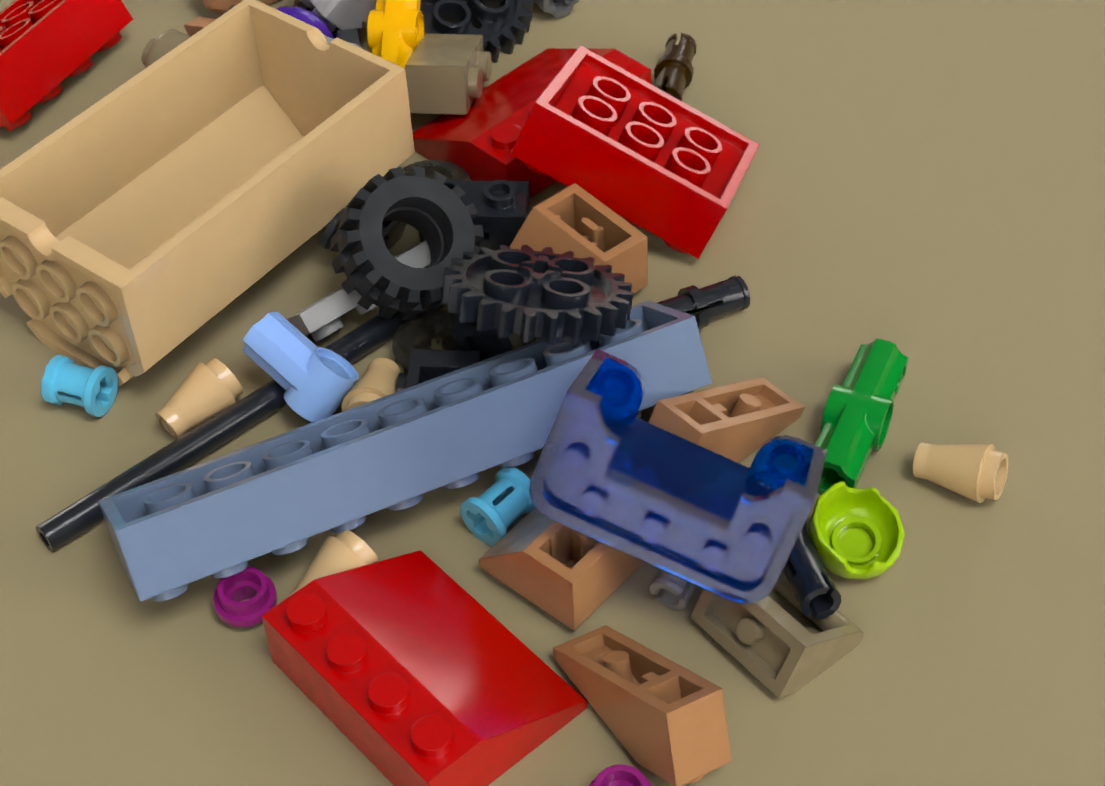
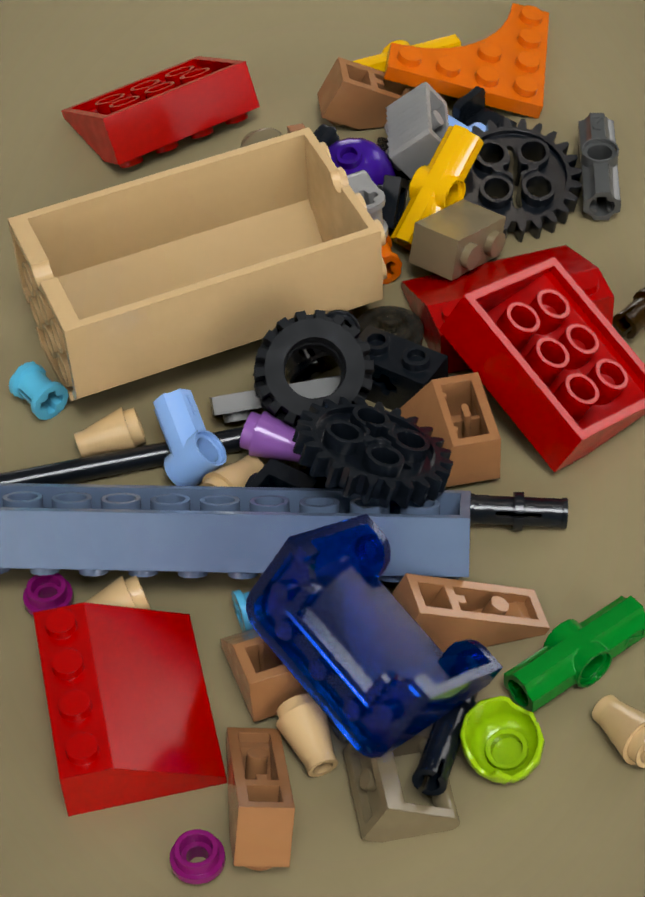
camera: 30 degrees right, 0 degrees up
(397, 330) = (268, 437): none -> medium lavender cone
(645, 613) = (307, 733): none -> tan cone

